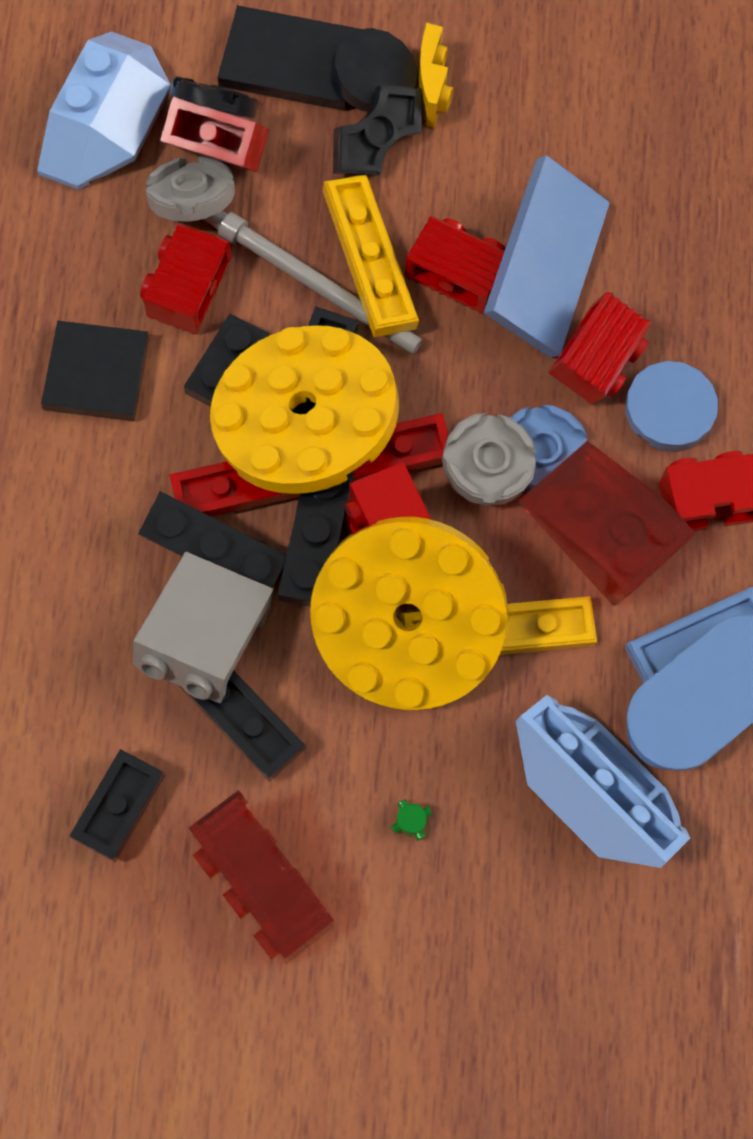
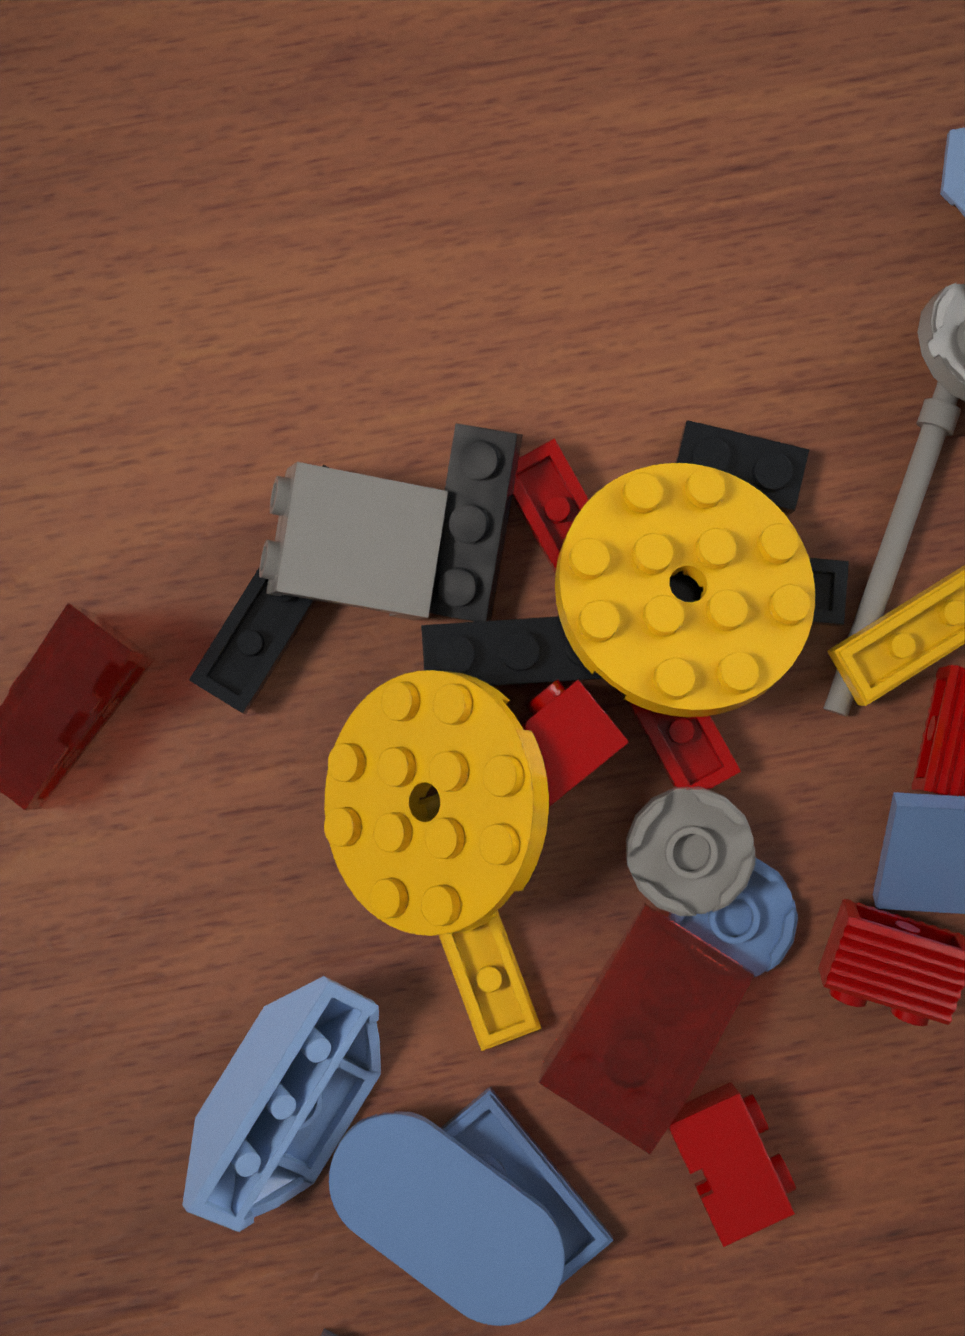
camera: 80 degrees right, 15 degrees up
(95, 370) = (680, 299): black tile -> none
(117, 805) = (110, 504): black plate -> none
(185, 278) = (843, 375): red brick -> none
(411, 820) = (190, 870): green piece -> none
(671, 405) = (845, 1076): medium blue tile -> none

